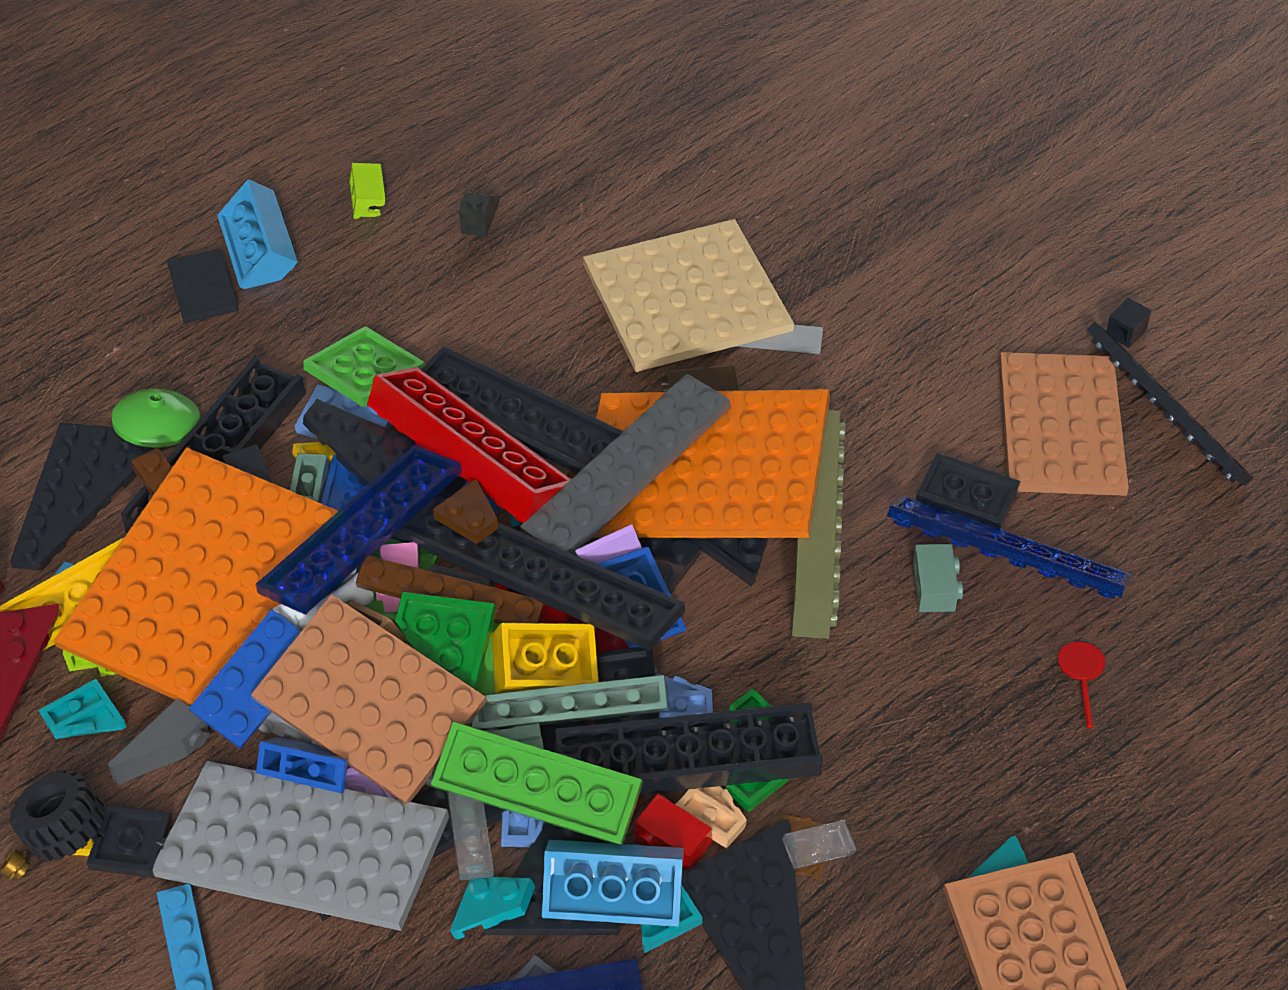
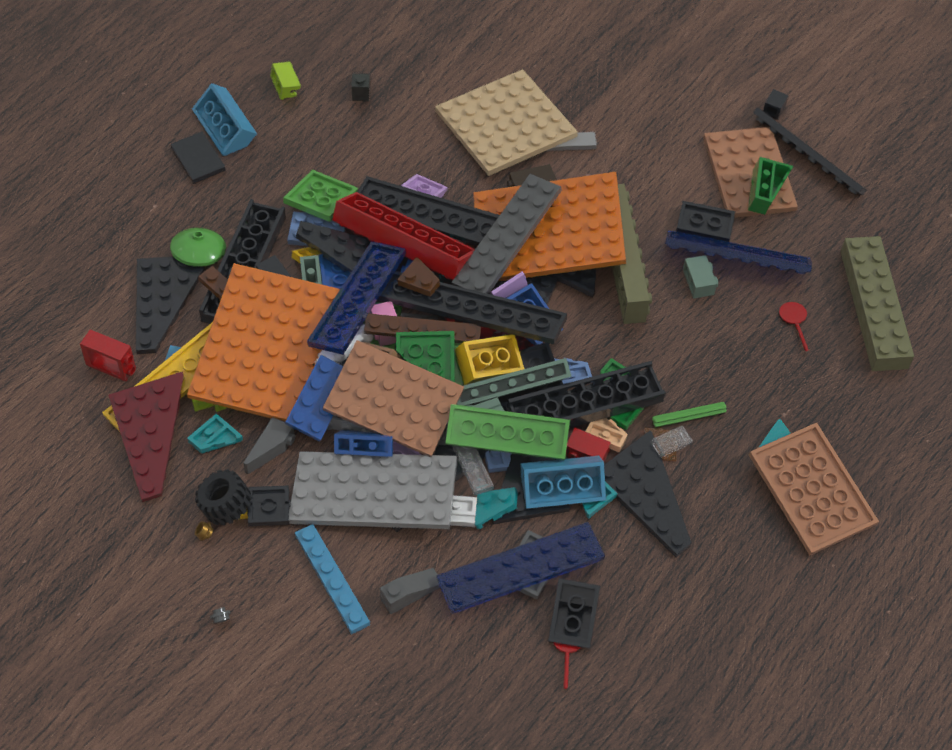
camera: 15 degrees left, 5 degrees up
(436, 903) = (463, 511): none -> white plate
(532, 374) = (425, 185): none -> lavender slope
(861, 803) = (689, 414): none -> bright green axle
(1081, 443) = (765, 184): none -> green wedge
(1228, 669) = (876, 304): none -> olive brick

